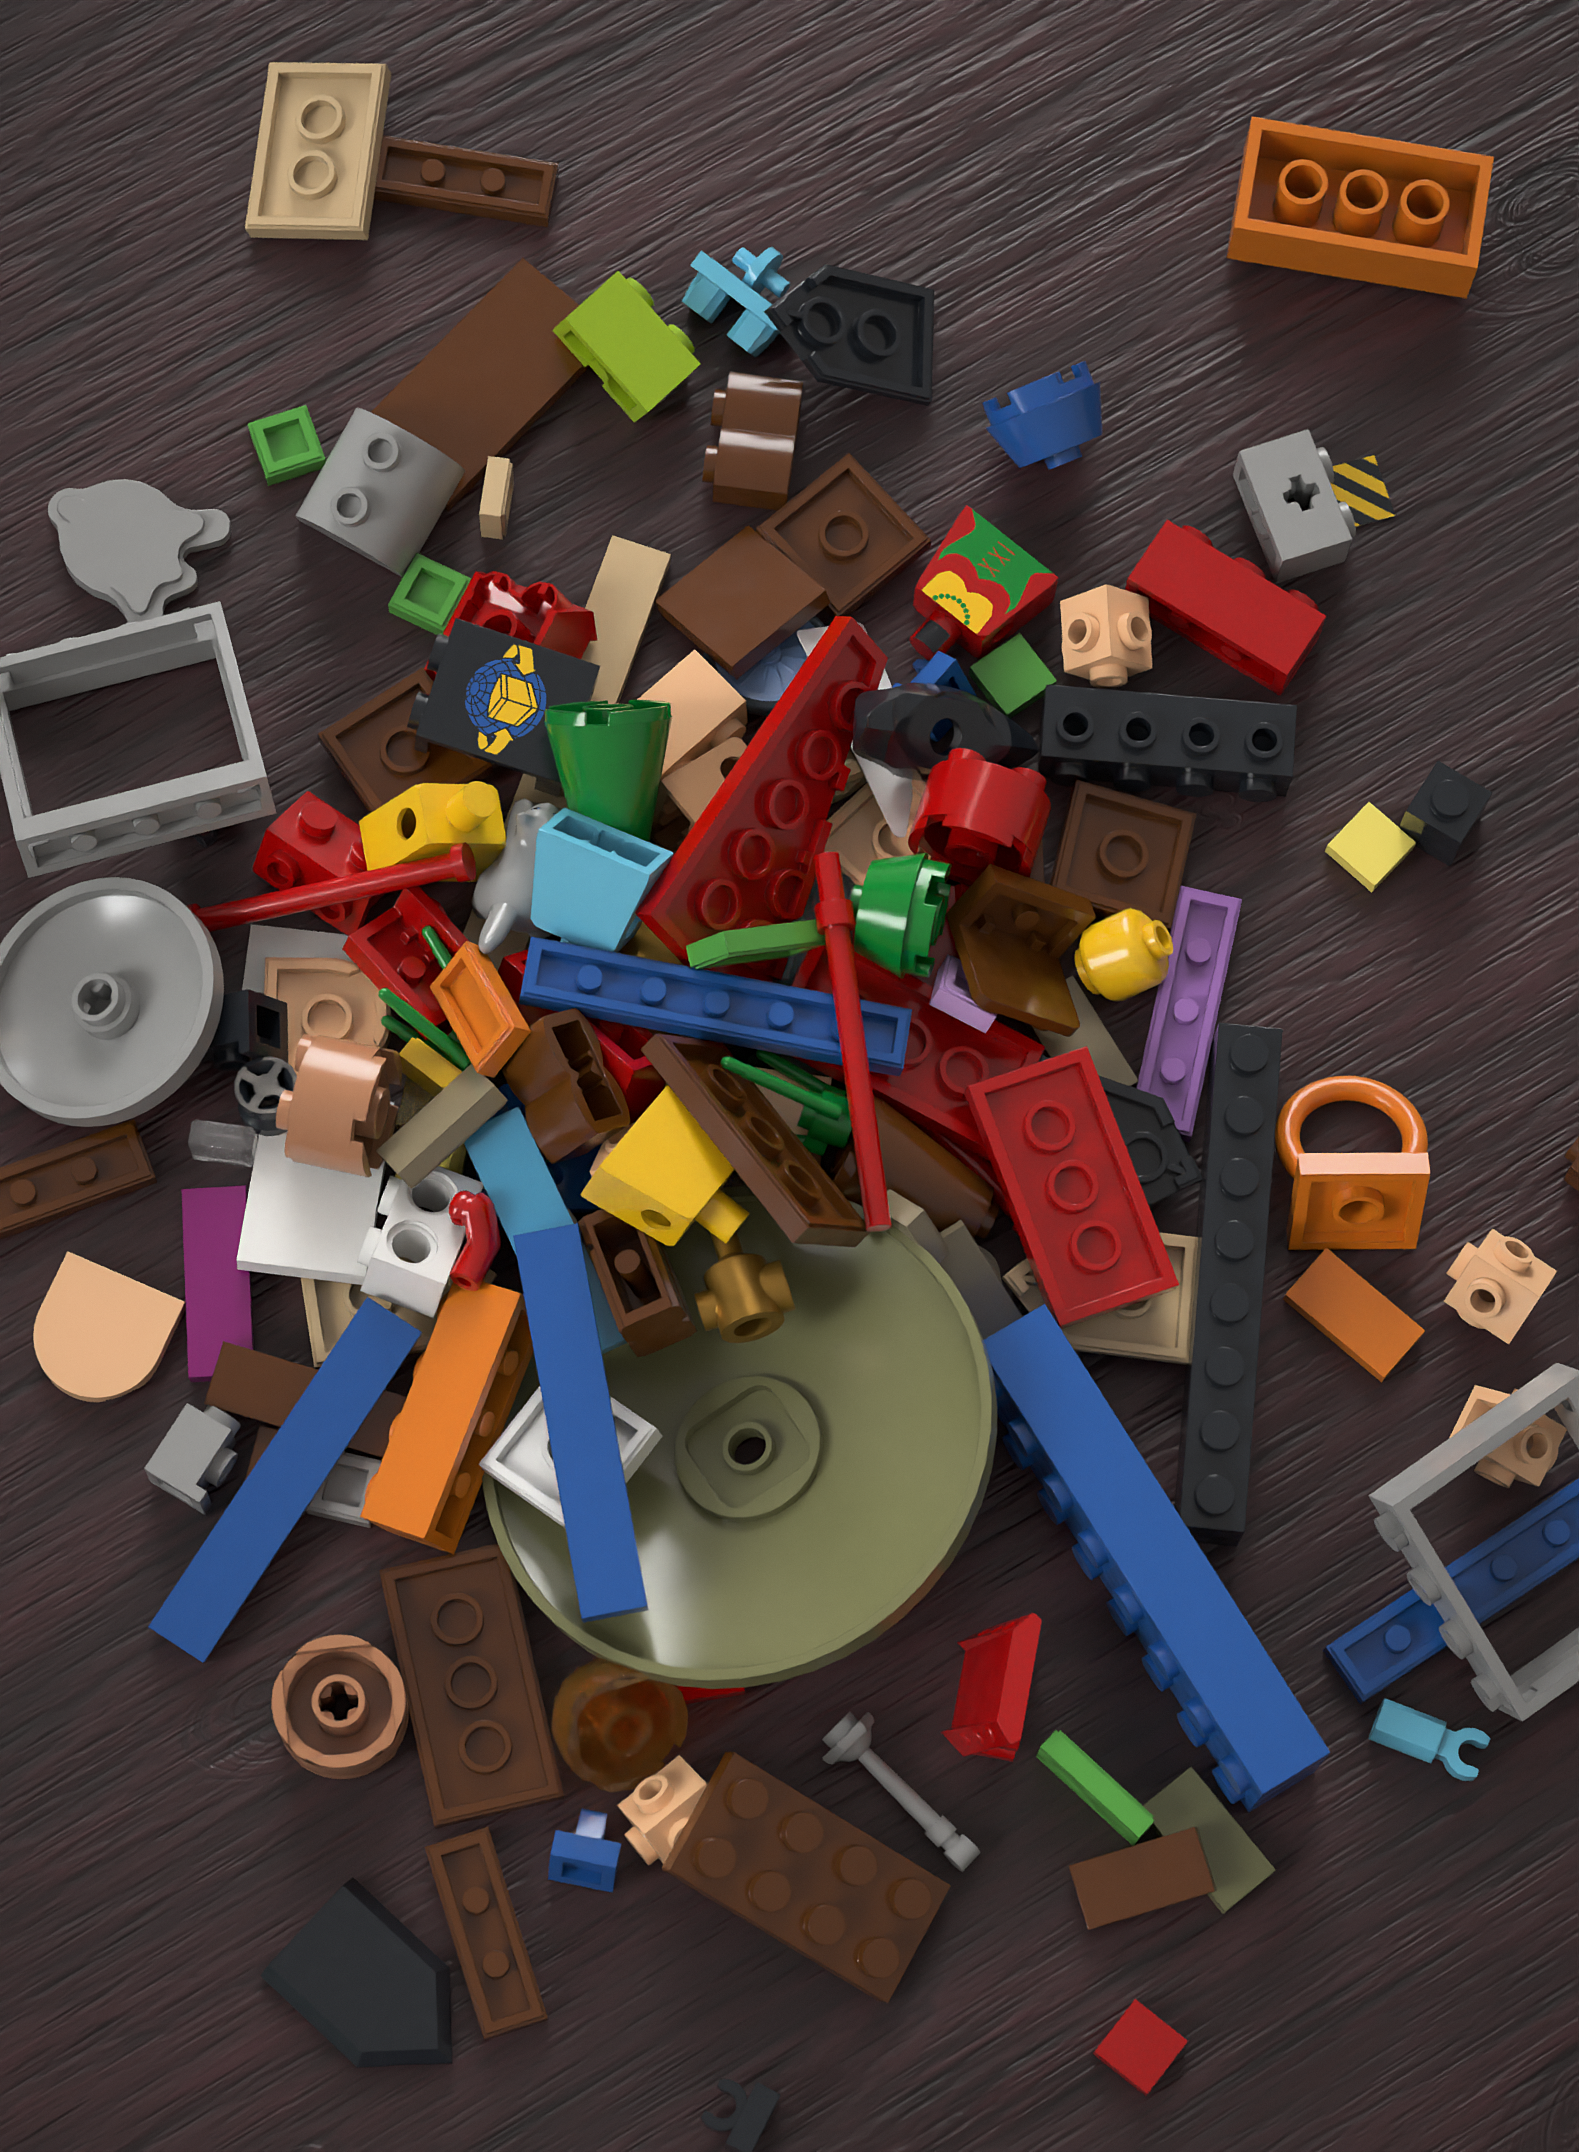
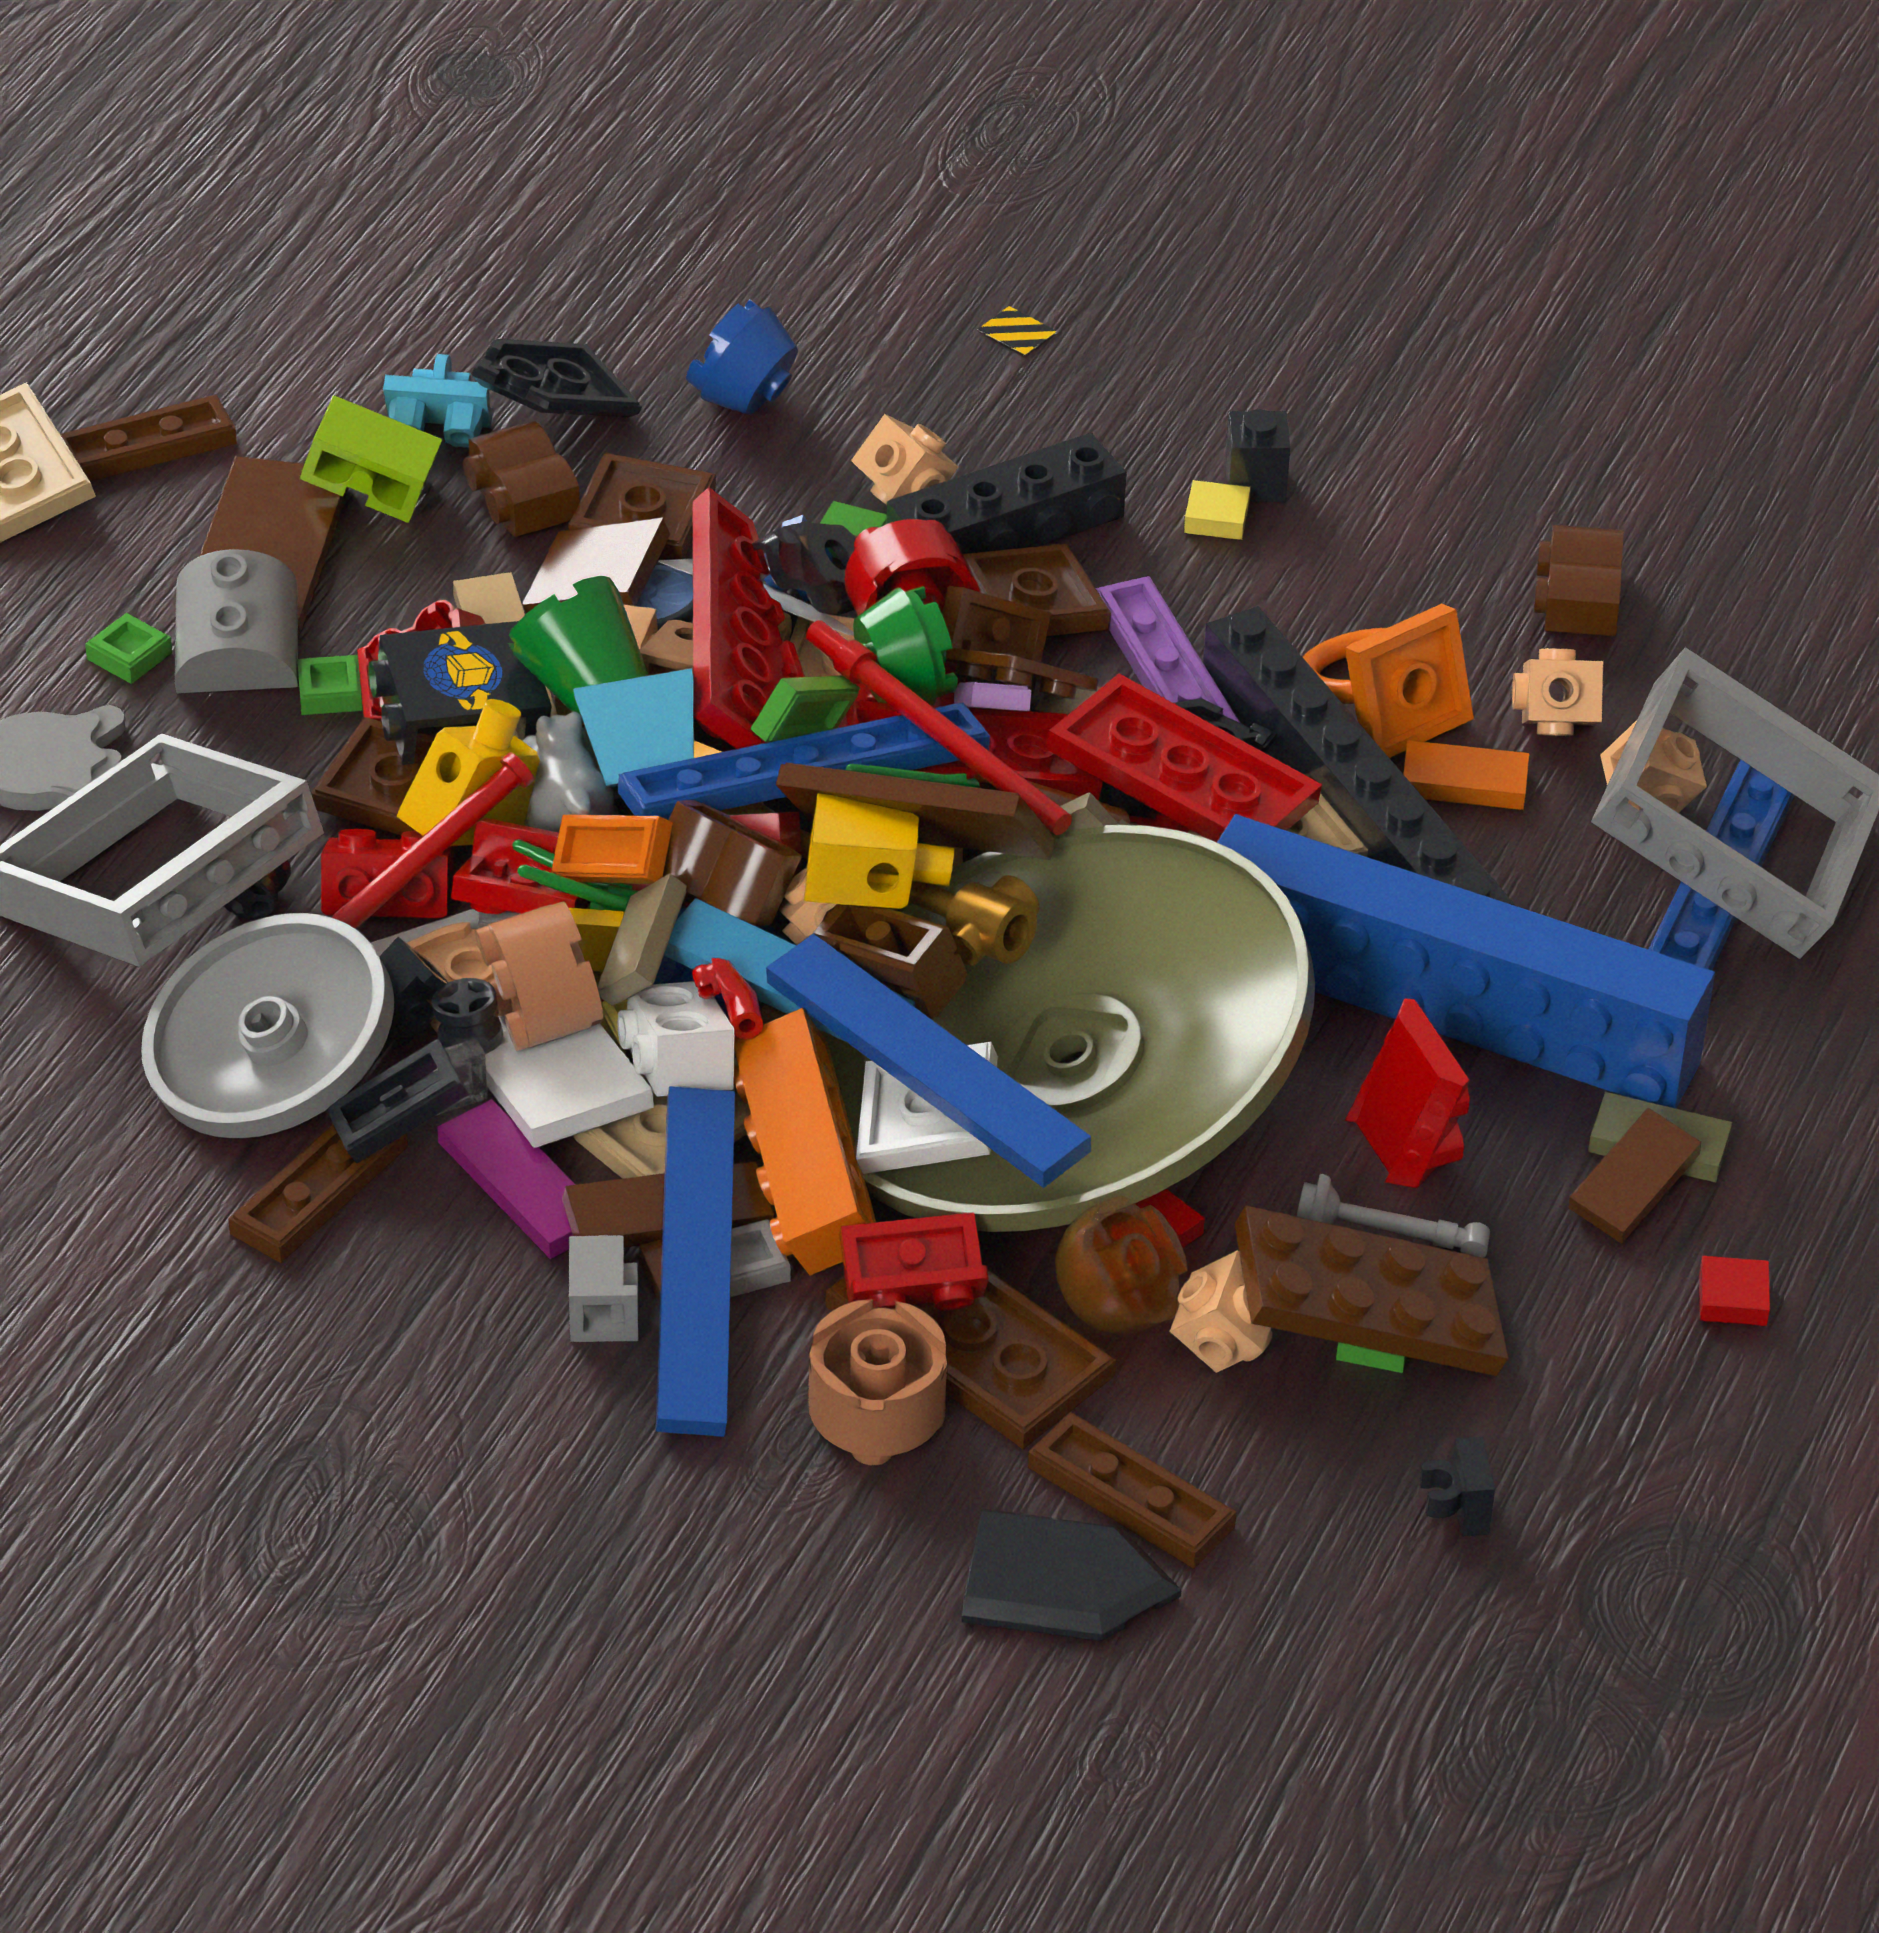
camera: 30 degrees left, 30 degrees down
(102, 1330) = (444, 1254): light nougat tile -> none
(191, 1166) = (400, 1107): none -> black tile
(447, 1609) = (914, 1262): none -> red bracket
(496, 497) = (337, 595): tan tile -> none
(585, 1856) = (1173, 1384): blue tile -> none
(978, 590) = (782, 477): torso -> none
(1095, 1787) = (1542, 1136): bright green tile -> none
(1123, 955) = (1091, 633): yellow head -> none
(1226, 606) = (985, 415): red brick -> none
(1291, 538) = (978, 344): light grey brick -> none
(1360, 207) = (876, 160): orange brick -> none
(1425, 1737) = (1768, 990): medium azure bar -> none

